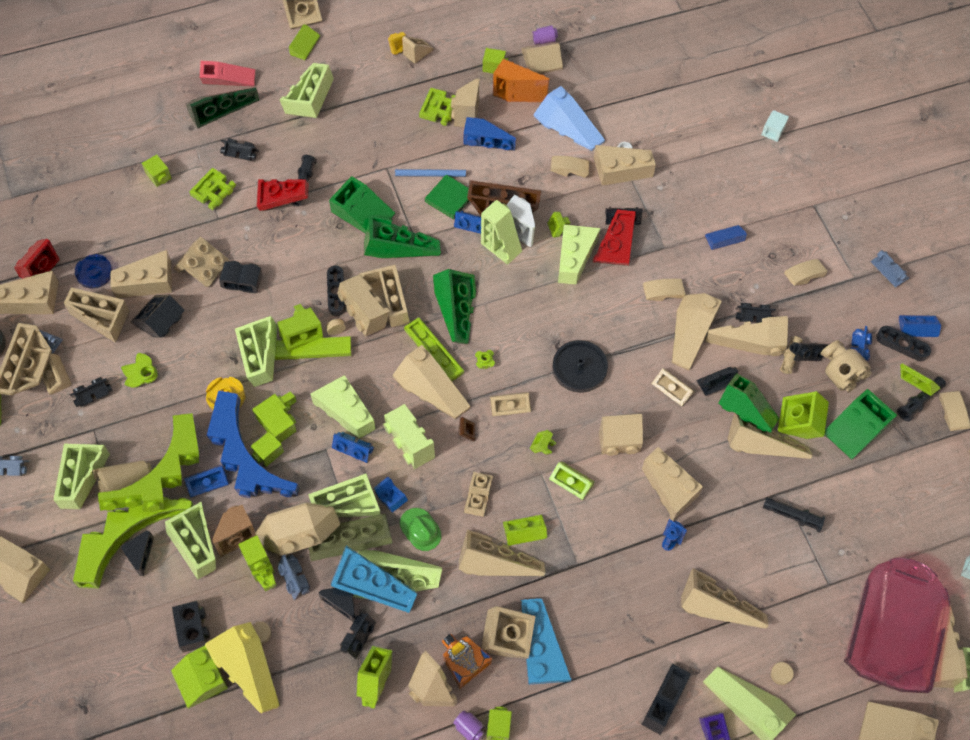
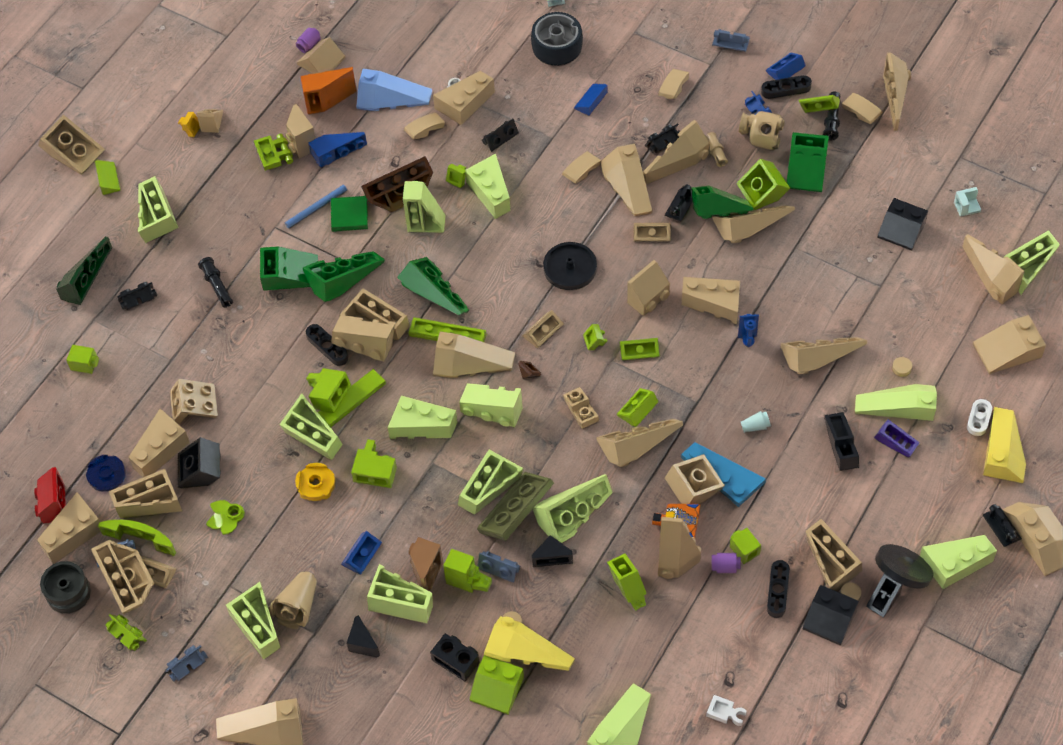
camera: 35 degrees left, 5 degrees down
(76, 353) = (116, 528): none -> lime slope
(83, 394) = (204, 552): black hinge -> none
(99, 548) = (328, 631): lime arch -> none
(167, 474) = (333, 583): lime arch -> none
(208, 185) = (139, 340): lime plate -> none
(226, 74) = (65, 244): coral slope -> none
(240, 277) = (239, 388): black brick -> none
(251, 476) = (372, 514): blue arch -> none
(266, 449) = (389, 494): lime brick -> none
(278, 193) = (209, 303): red wing -> none
(297, 528) = (473, 524): tan wedge -> none
(335, 327) = (354, 370): tan tile -> none
(345, 443) = (452, 446): blue hinge -> none
(363, 627) = (589, 573): black hinge -> none
(370, 581) = (559, 520): dark azure wing -> none
(390, 495) = (519, 455): blue bracket -> none
(420, 529) = (560, 463): bright green piece -> none
(467, 222) = (387, 220): blue hinge -> none
(484, 364) = (494, 316): lime plate -> none
(492, 59) = (286, 86): lime brick -> none
(522, 219) = (435, 185): white slope -> none
(610, 623) = (756, 422): none -> light aqua cone
(618, 240) = (514, 154): red wing -> none
(740, 166) = (556, 38): none -> wheel
(804, 516) = (824, 253): black pin -> none
(807, 351) = (727, 137): black hinge -> none
(898, 540) = (903, 224): none -> black slope
(899, 626) = (953, 275): clear pink windscreen -> none

